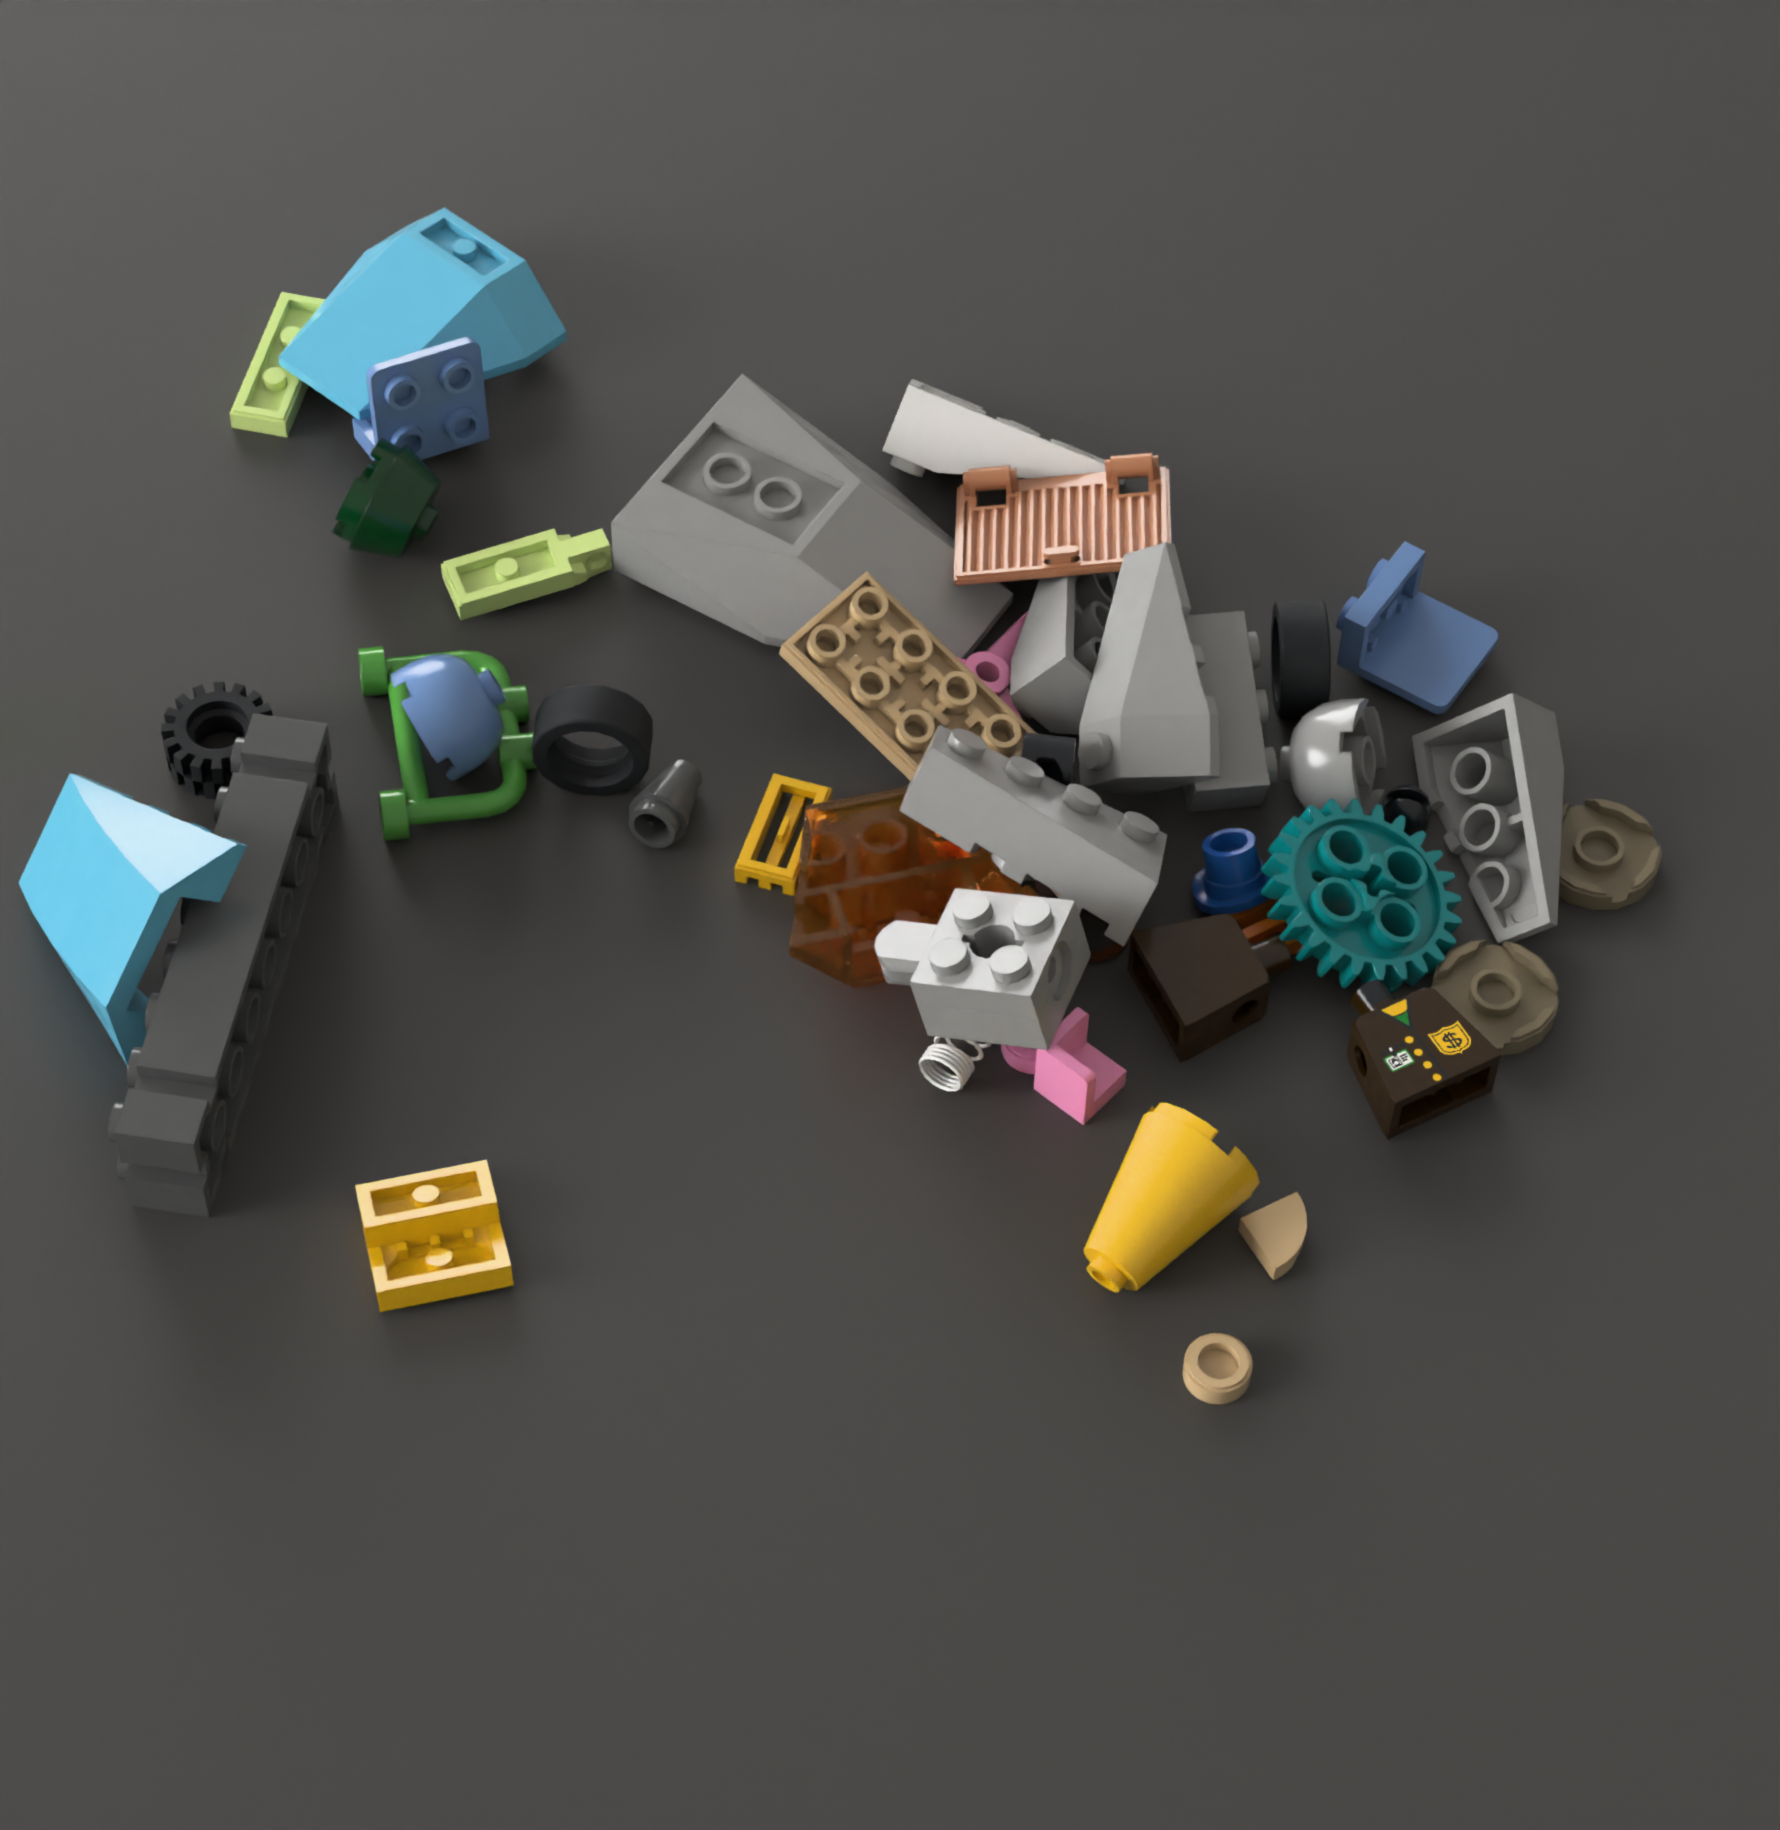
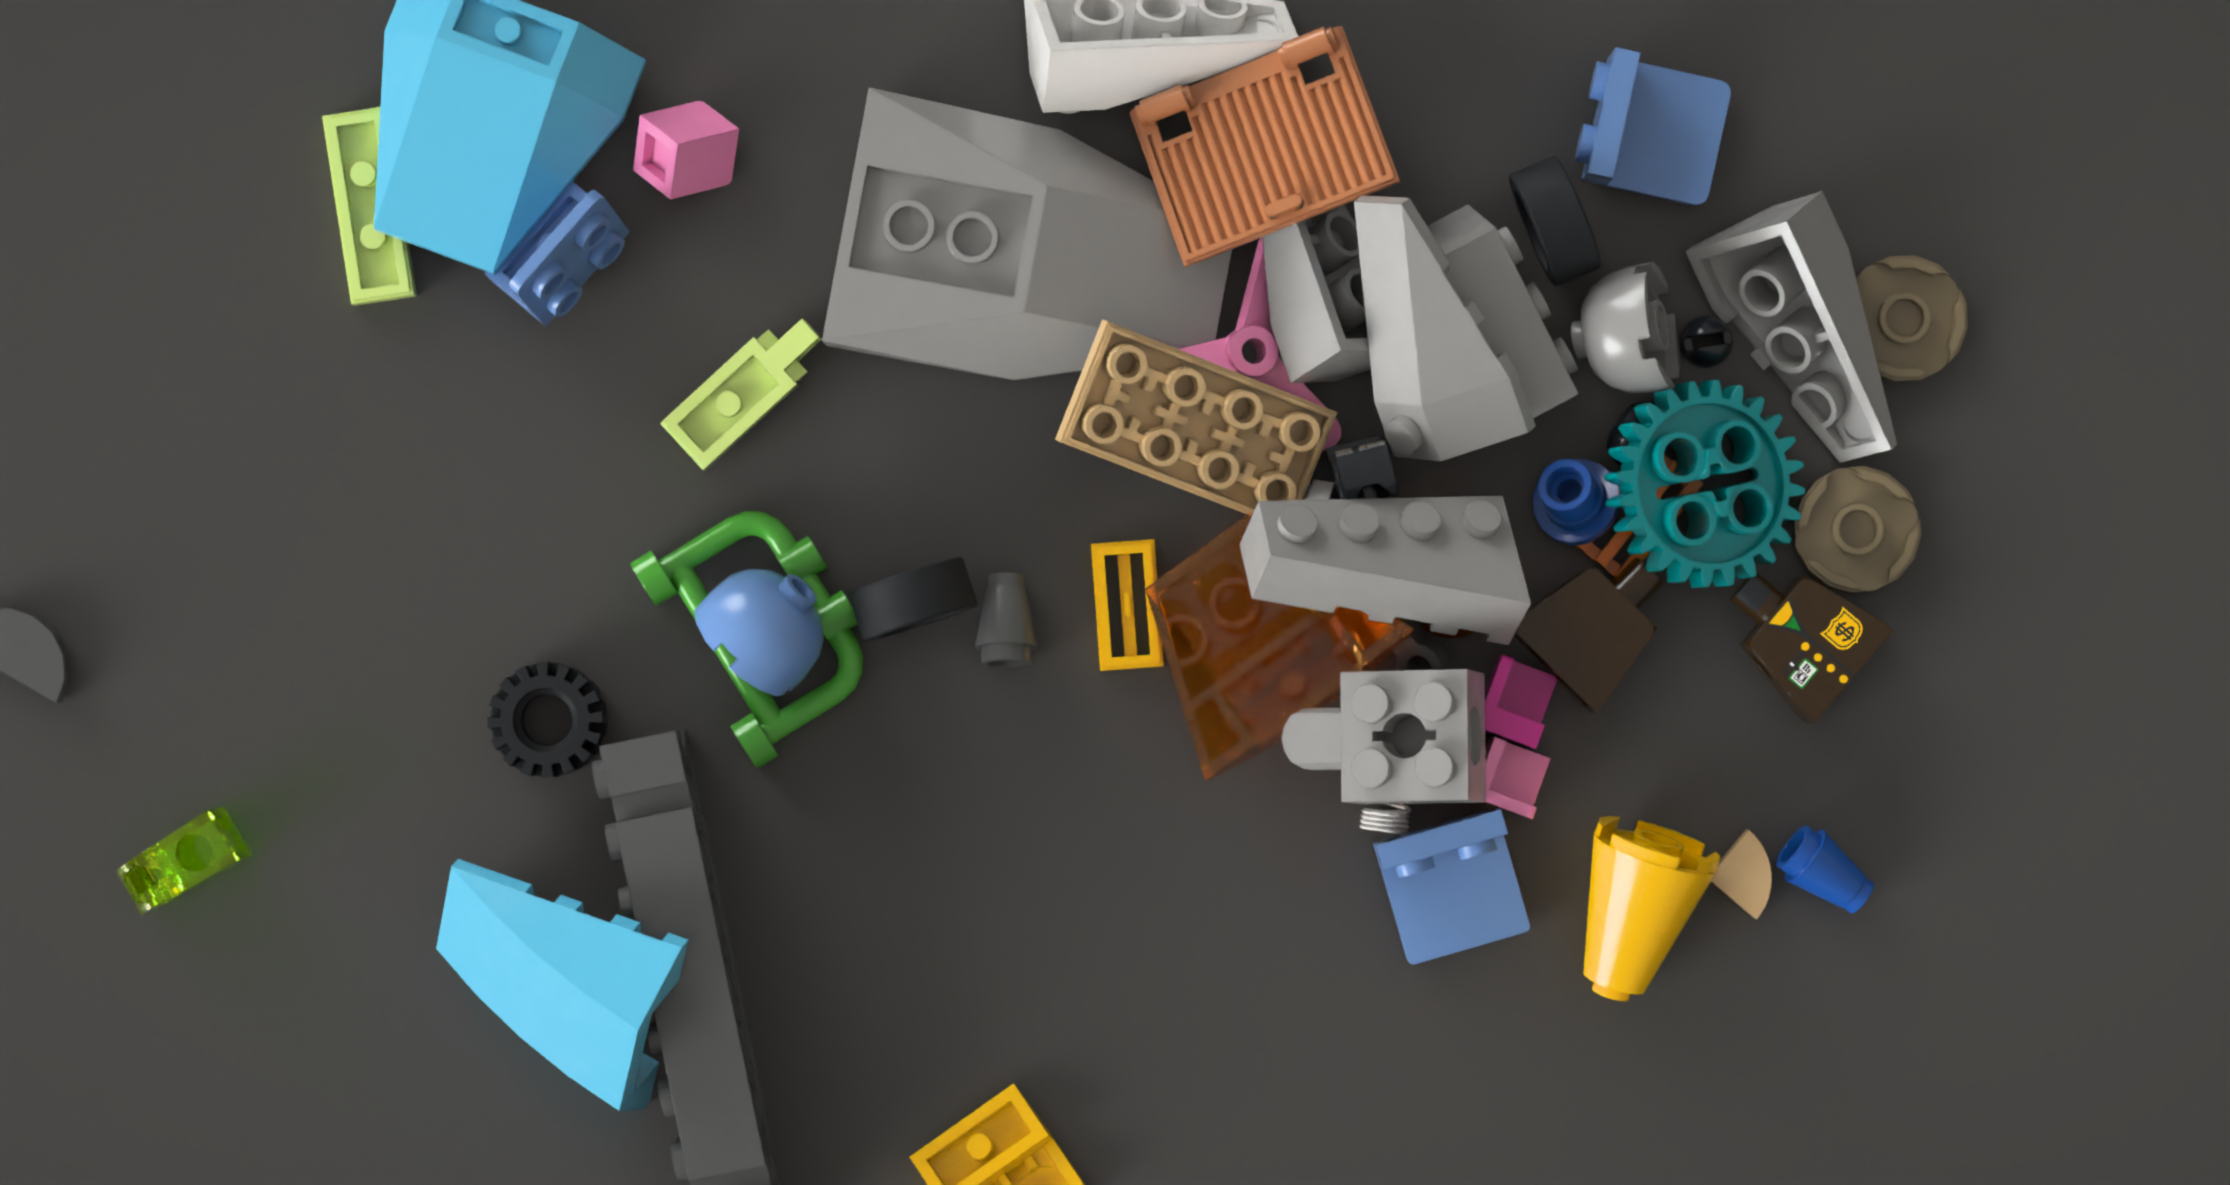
camera: 20 degrees left, 35 degrees up
(389, 503) = (579, 380): dark green cone -> none
(567, 398) = (685, 149): none -> bright pink panel
(987, 1126) = (1452, 886): none -> medium blue bracket
(1116, 1018) = (1517, 701): none -> dark pink panel
(1217, 1368) = (1737, 1034): tan tile -> none
(1359, 1249) = (1823, 868): none -> blue cone

